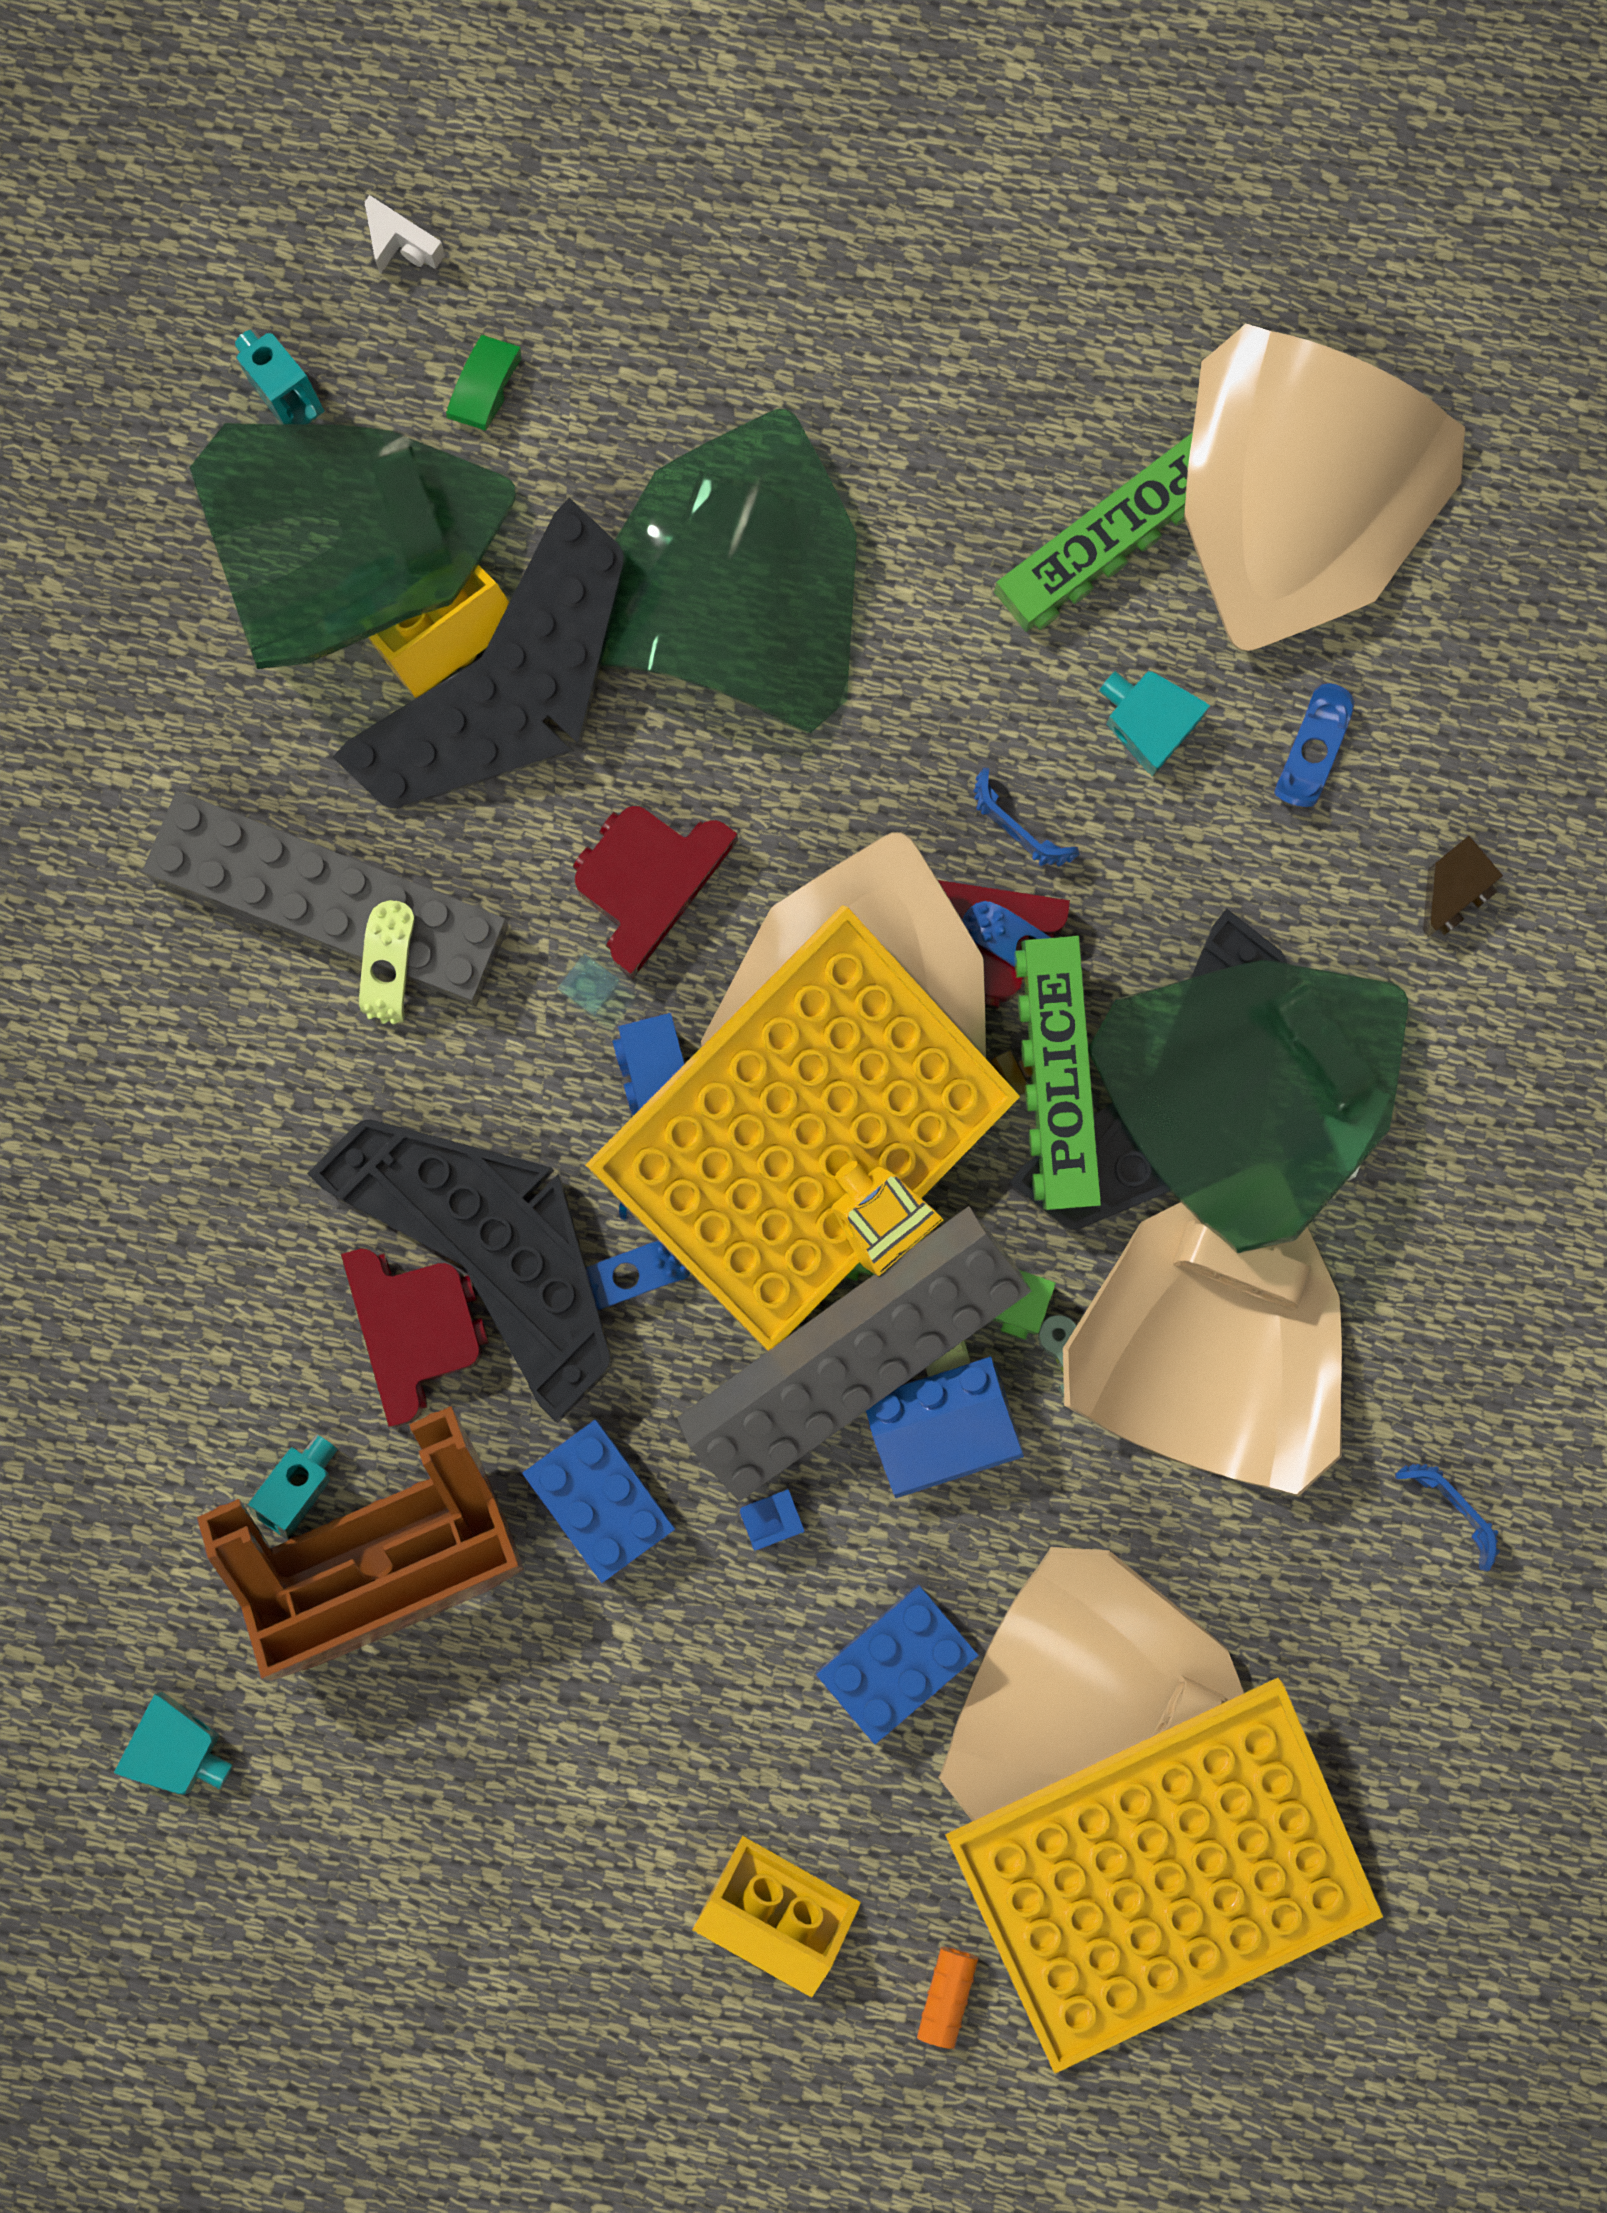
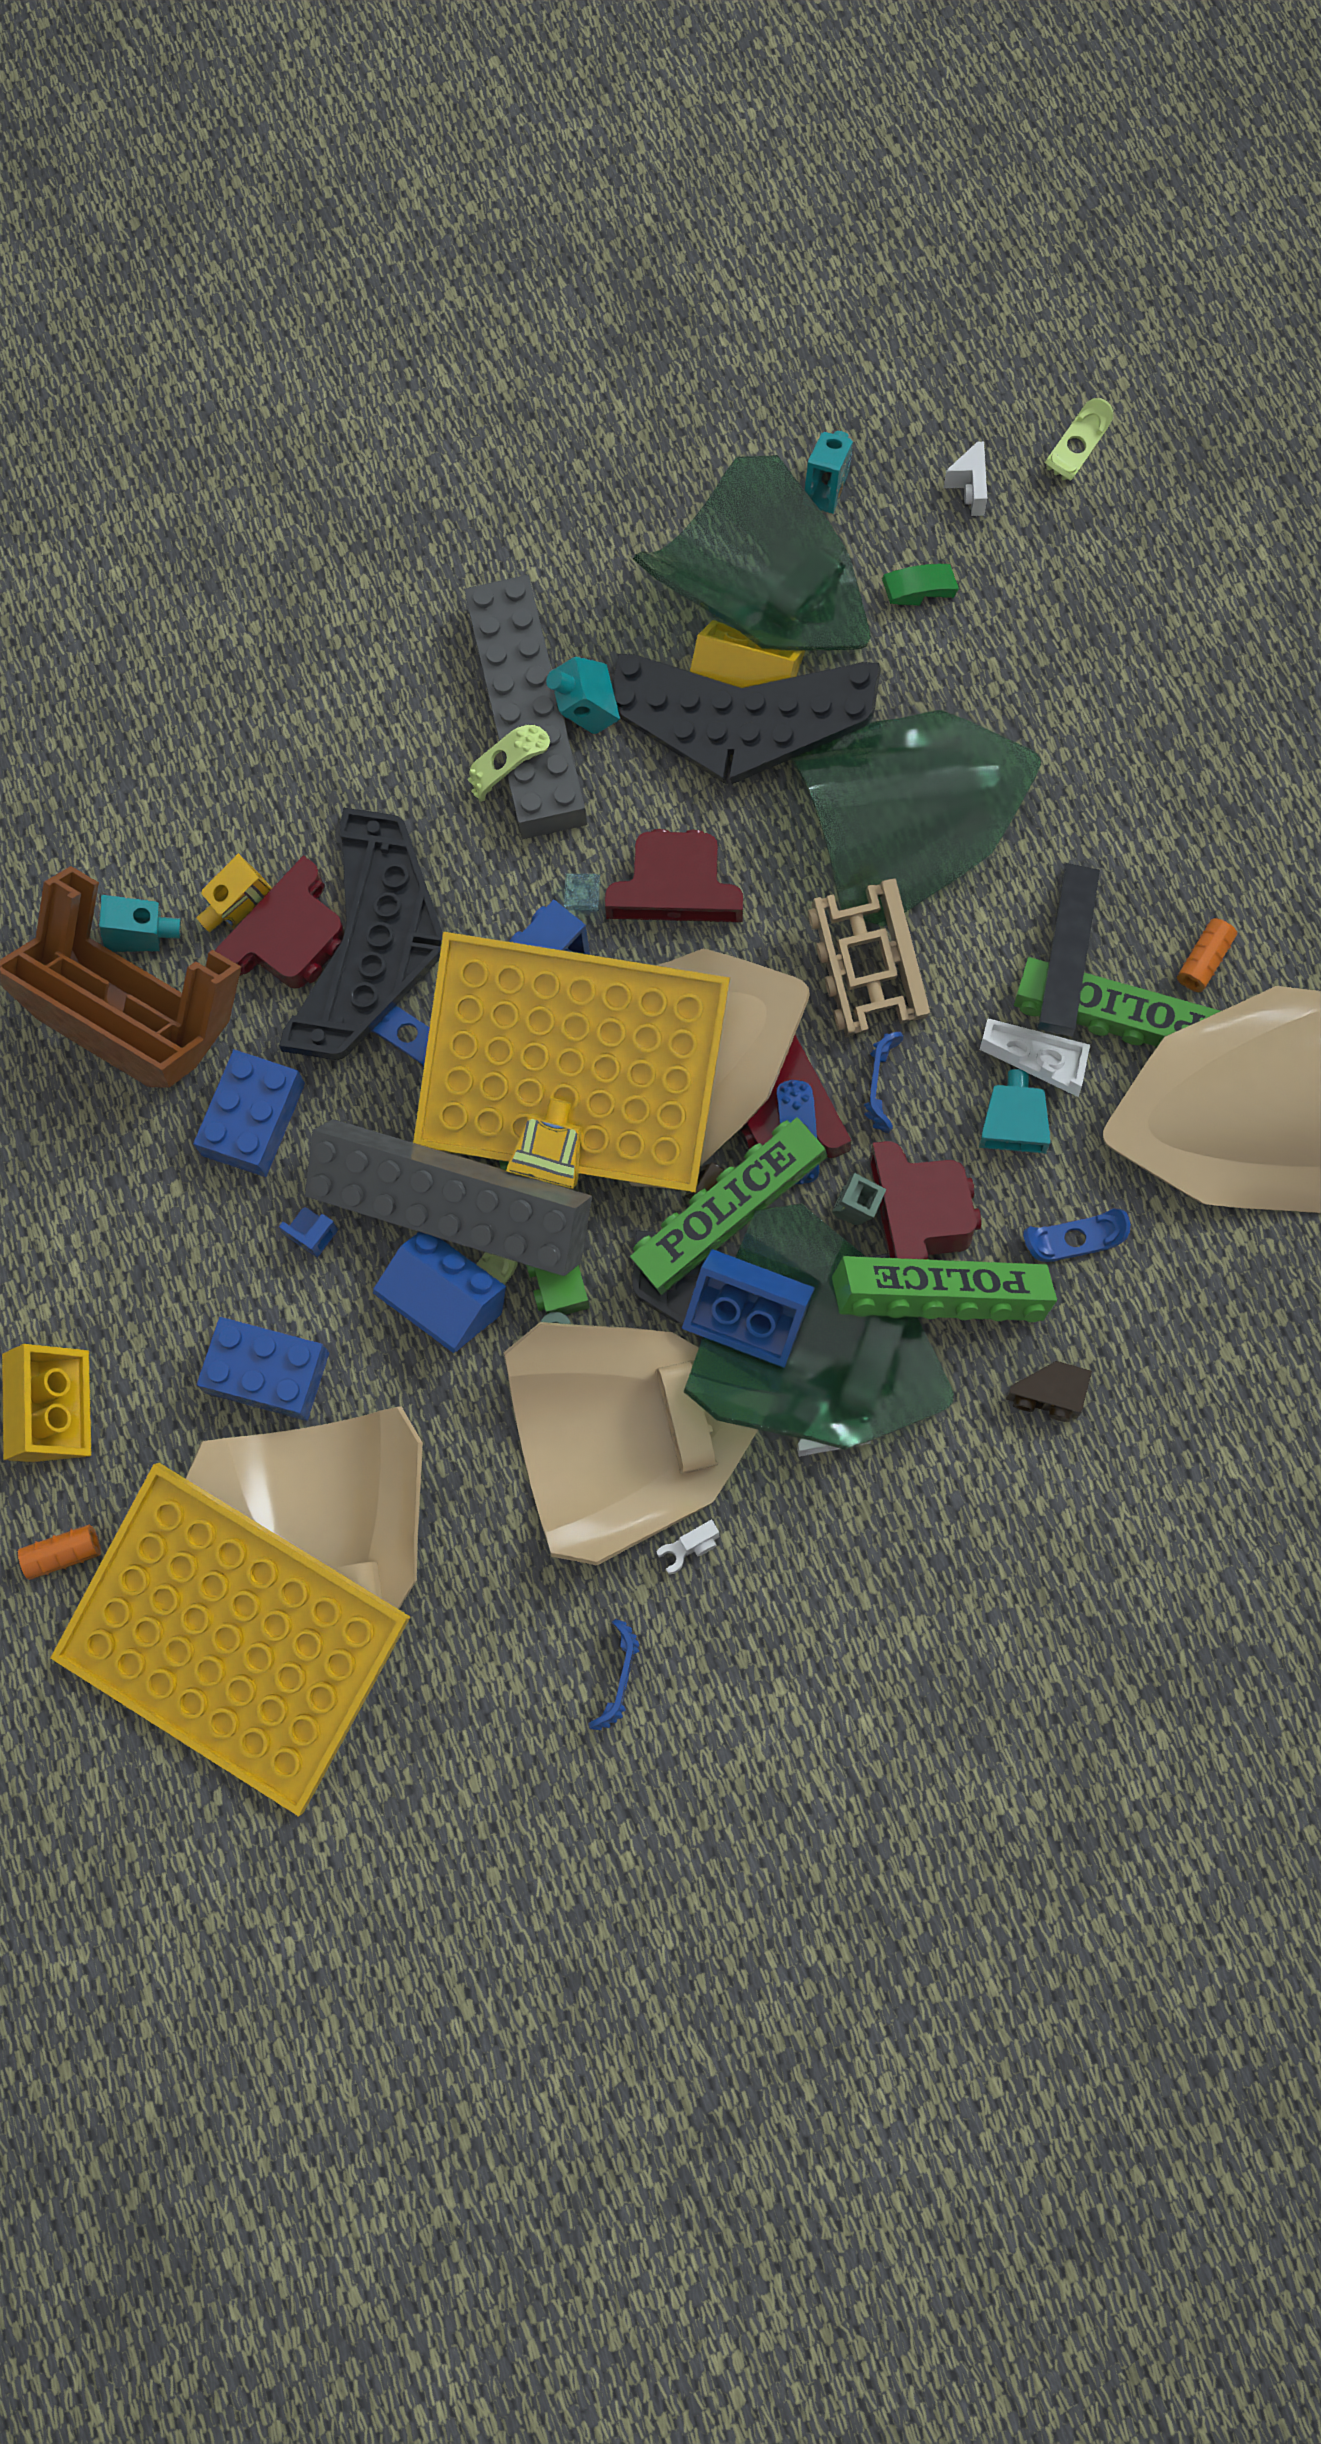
camera: 65 degrees right, 10 degrees down
(335, 1340) = (232, 894): none -> yellow torso
(364, 826) = (584, 693): none -> teal torso
(423, 71) = (1089, 428): none -> yellowish green piece
(896, 708) = (898, 951): none -> tan fence
(1018, 535) = (1069, 950): none -> black tile
(1102, 646) = (1038, 1053): none -> white wing
(1112, 401) = (1207, 955): none -> orange axle
(1137, 940) = (858, 1200): none -> sand green leg
(1181, 1126) = (747, 1308): none -> blue slope
(1186, 882) = (924, 1204): none -> dark red brick
(1296, 921) = (943, 1289): none -> bright green brick
(1372, 1339) = (698, 1541): none -> white plate

